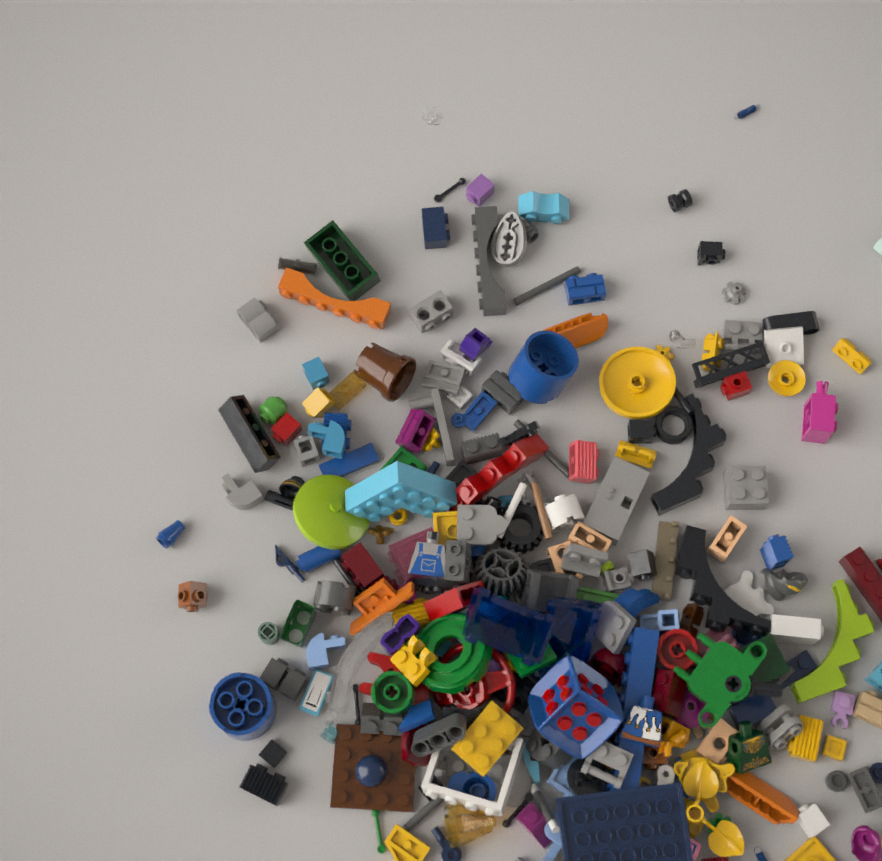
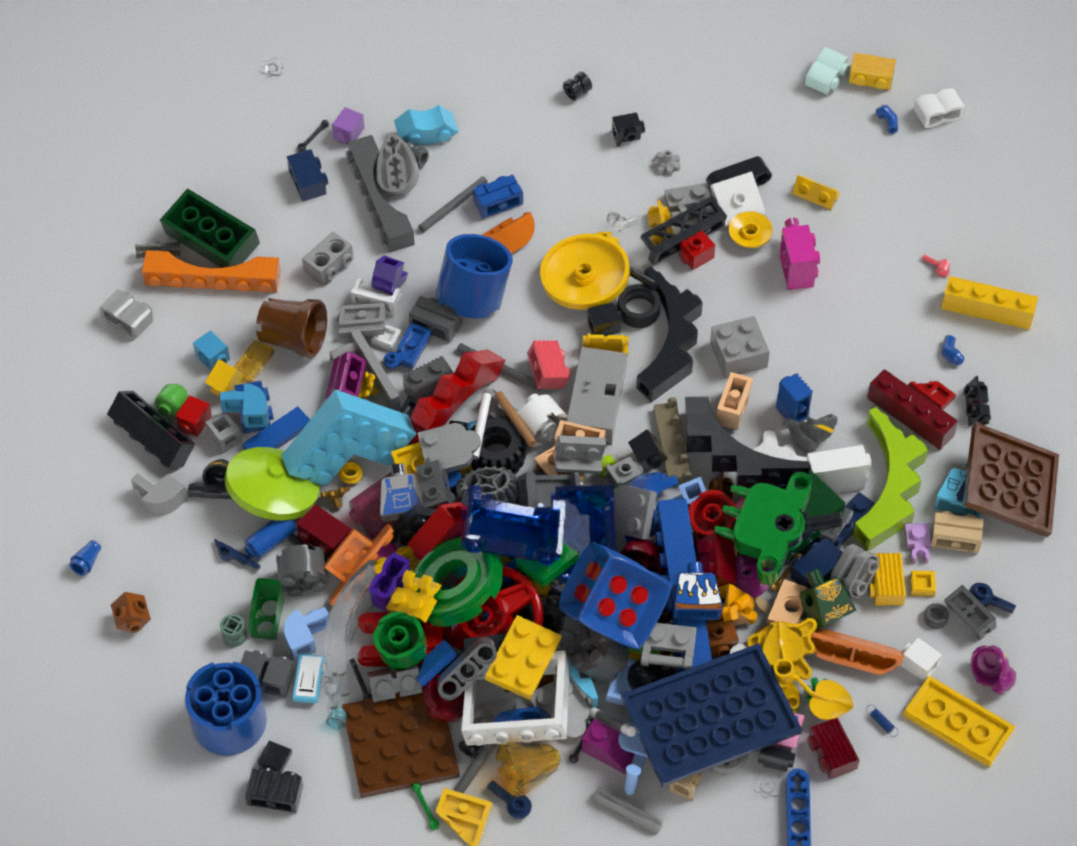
camera: 15 degrees left, 15 degrees down
(371, 770) = (397, 738): dark blue hair -> none
(528, 430) = (476, 343): black wing -> none

